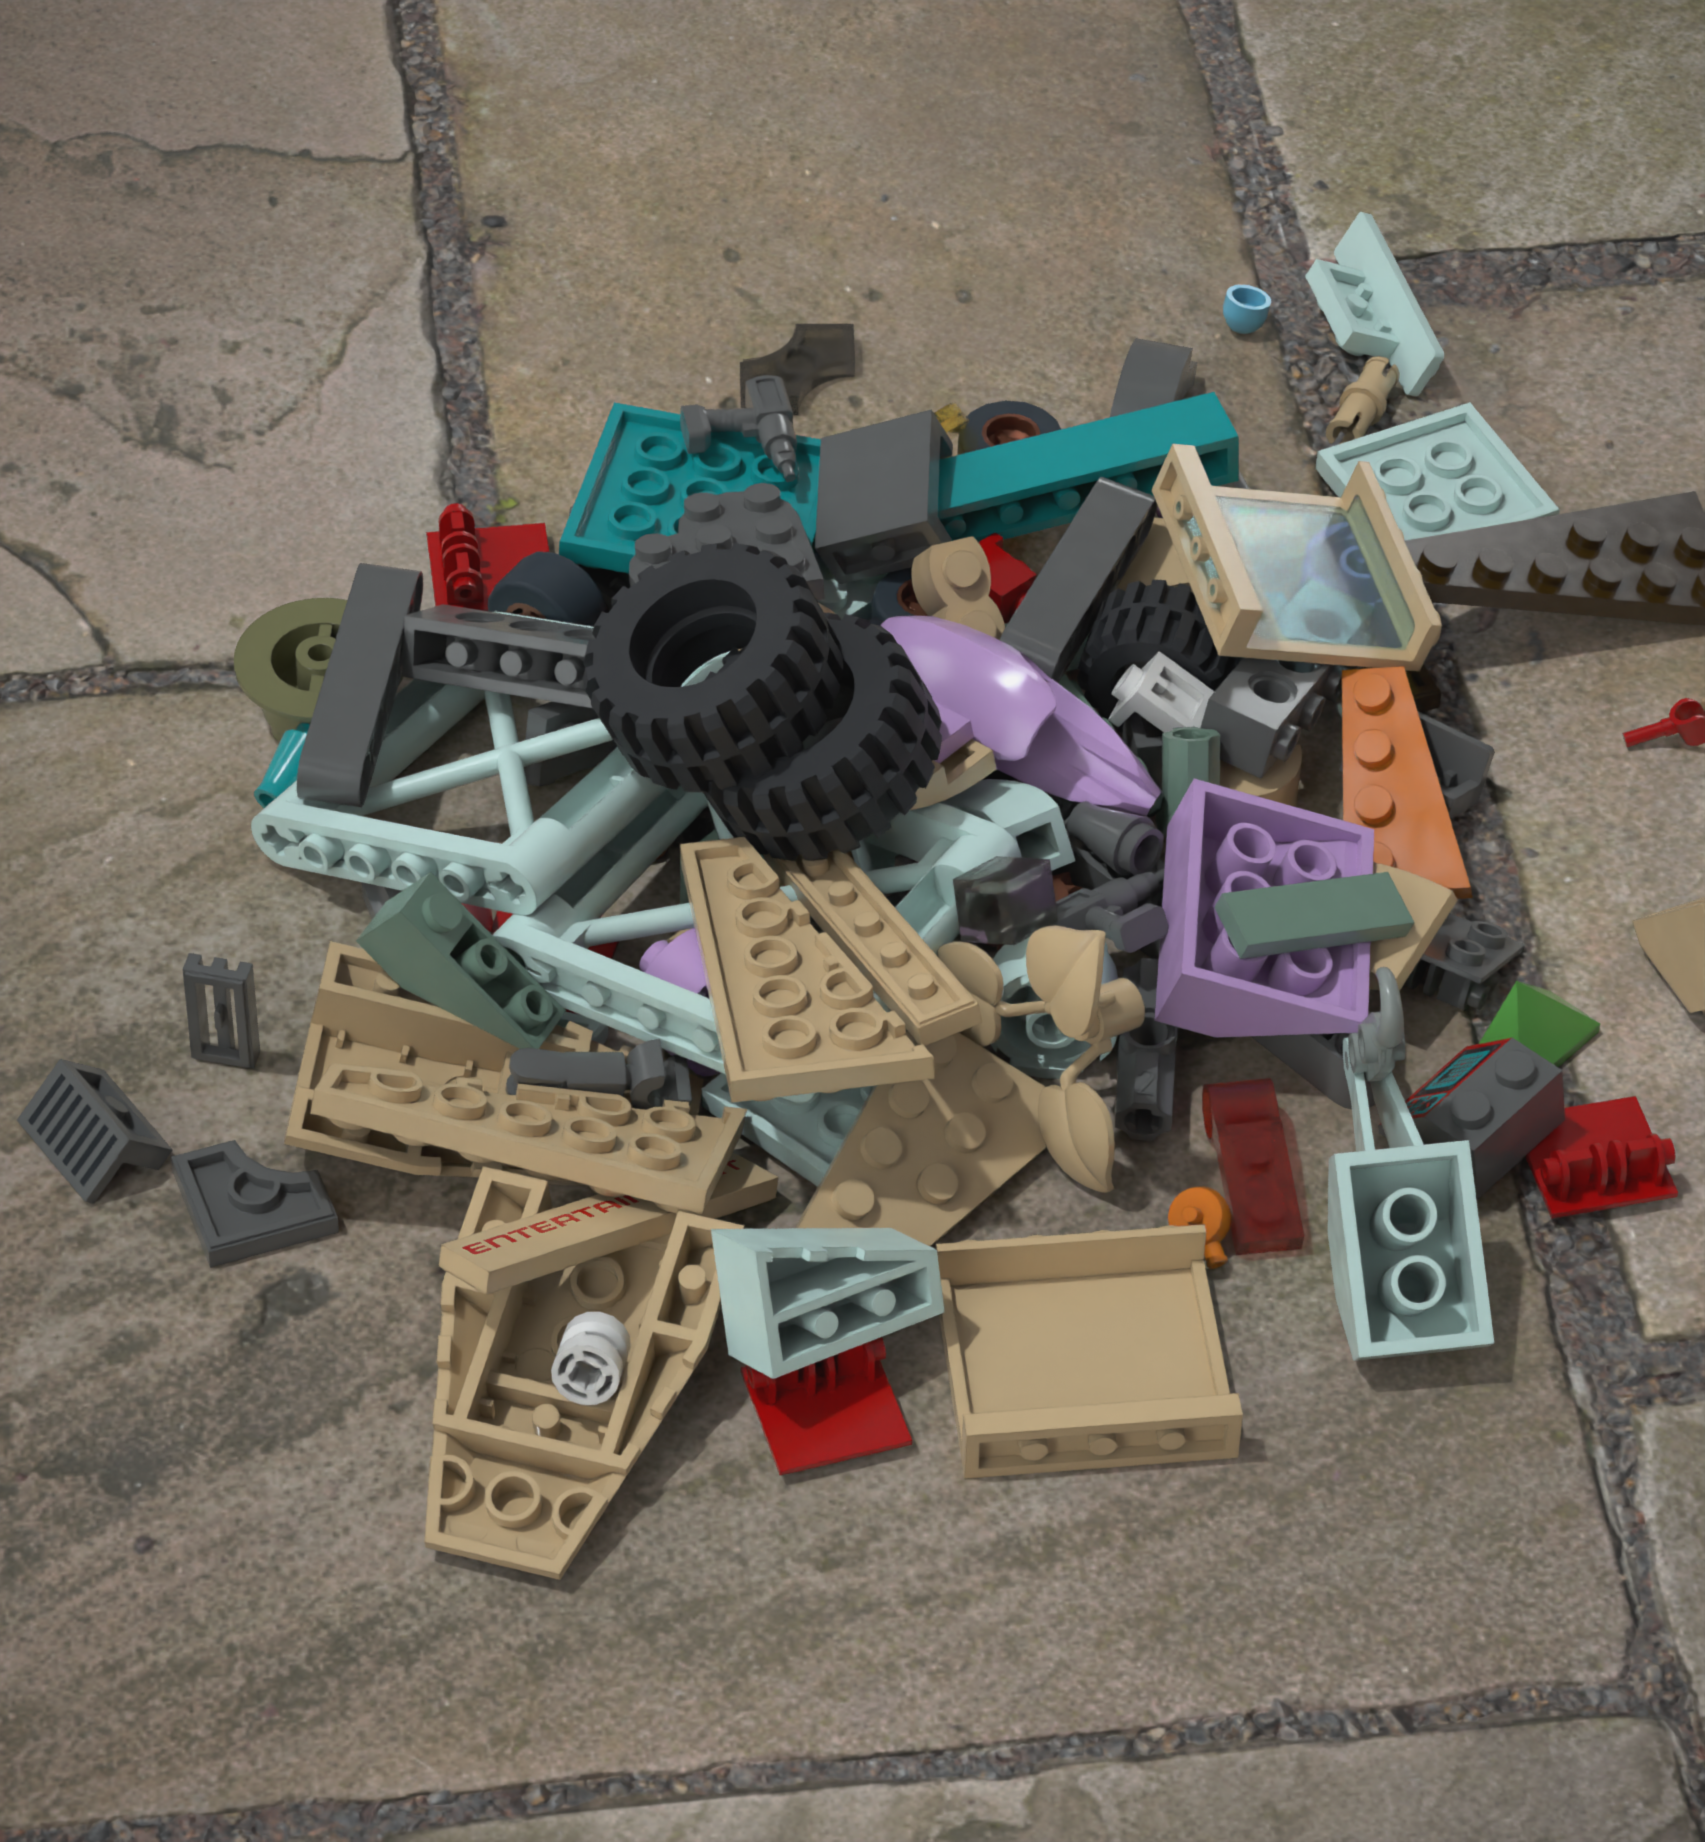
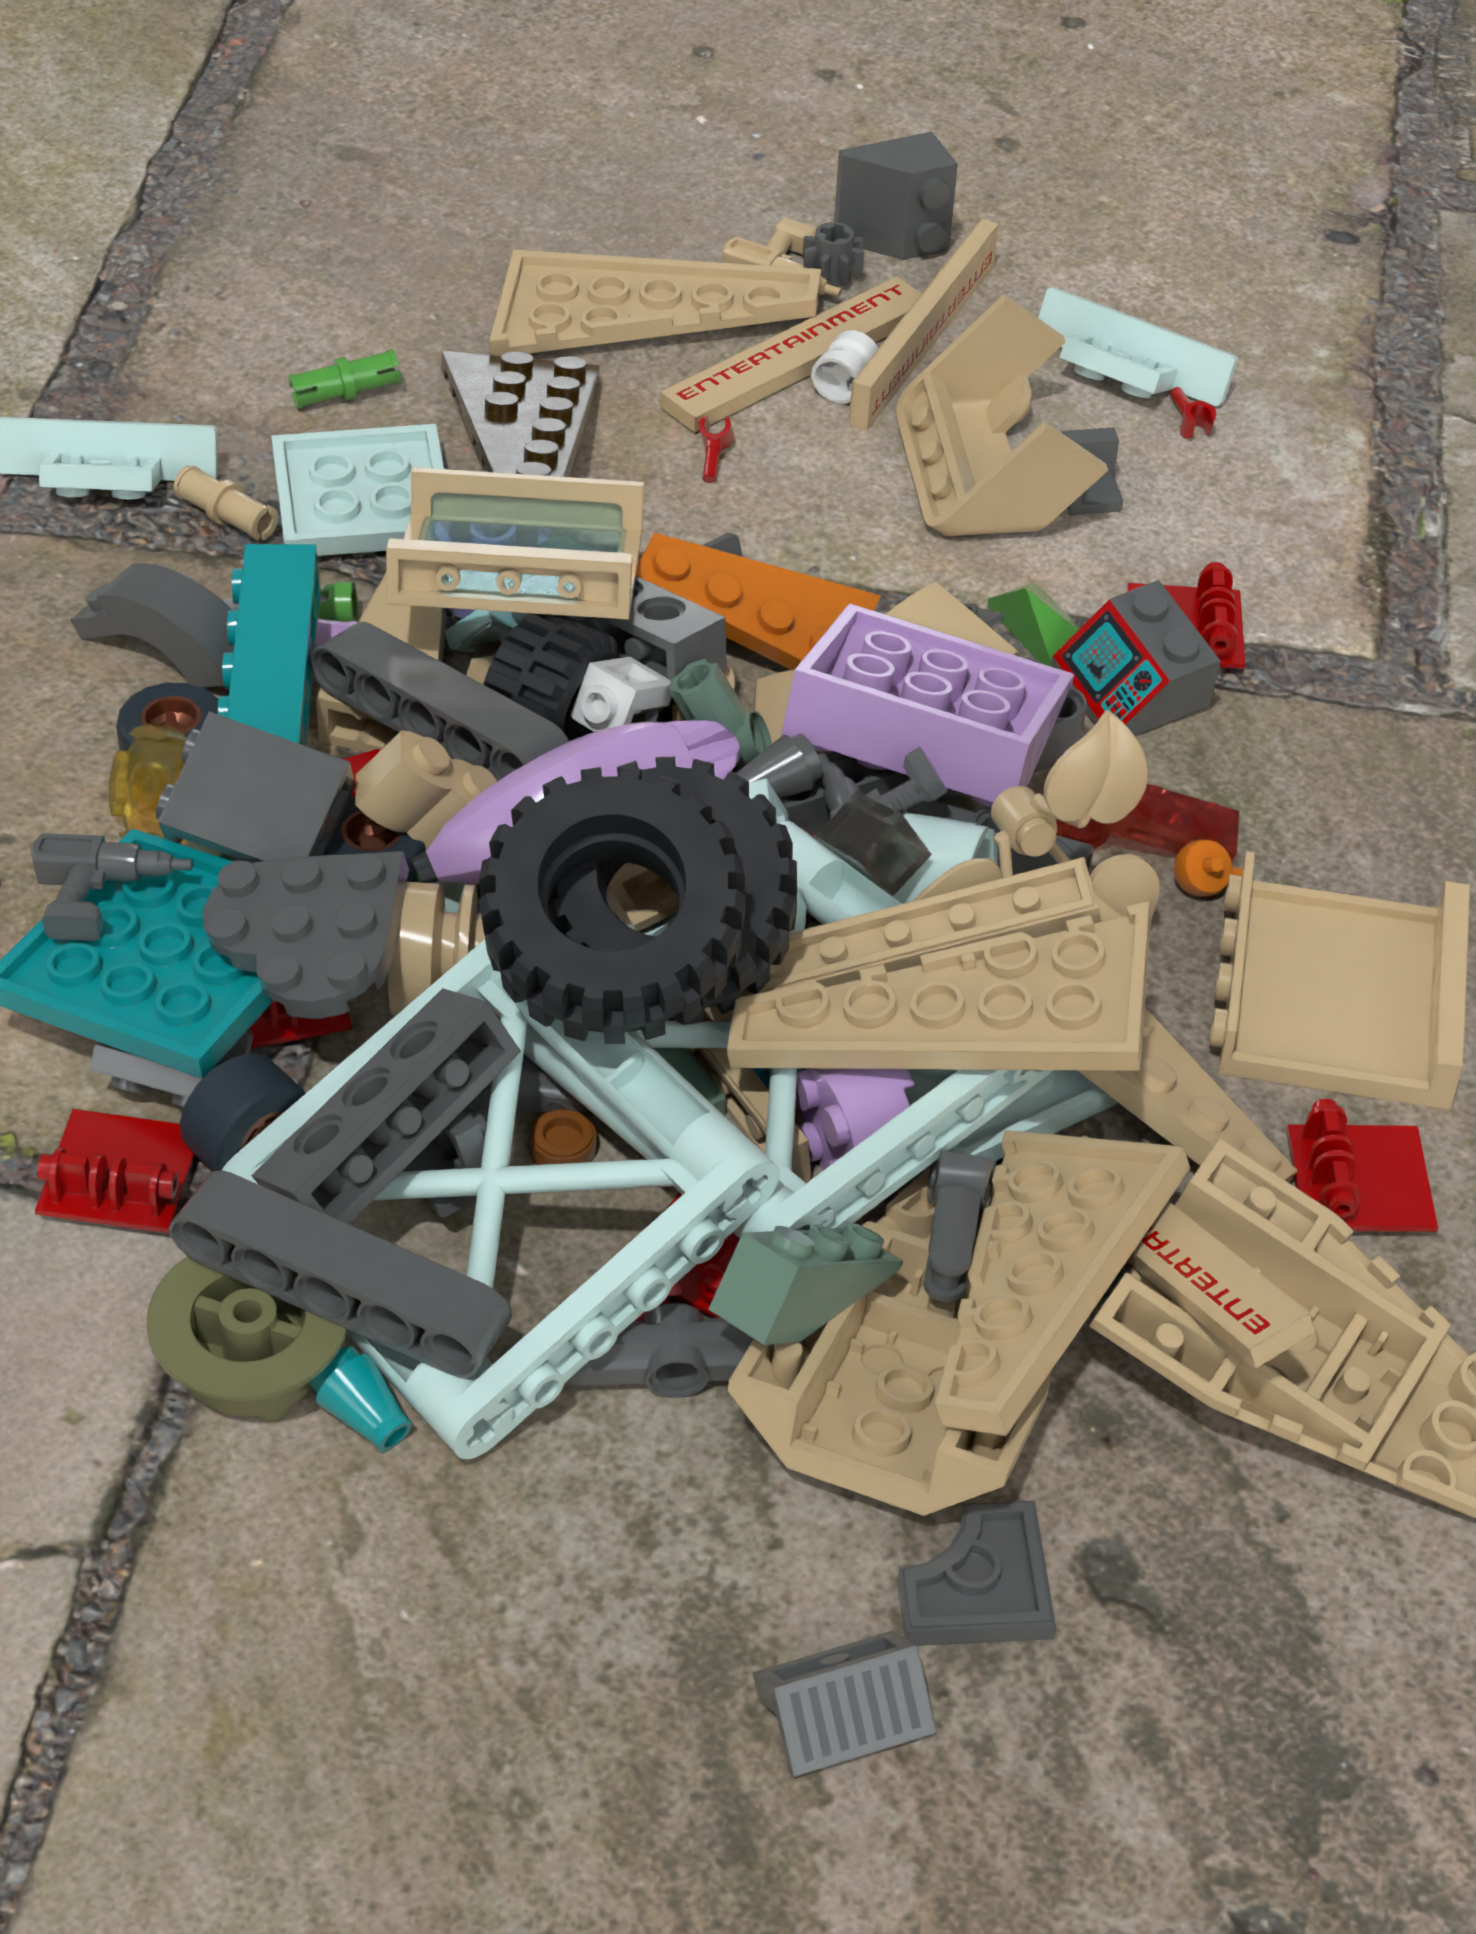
camera: 75 degrees left, 0 degrees up
(222, 980) = (751, 1521): dark grey tile -> none
(591, 1358) = (1337, 1309): white wheel -> none
(819, 1291) = (1306, 1111): light aqua wedge -> none
(1246, 308) = (54, 536): medium azure hinge -> none
(1314, 915) = (967, 655): sand green tile -> none
(1402, 1215) = (1299, 725): light aqua slope -> none
(1604, 434) = (344, 378): none -> bright green pin

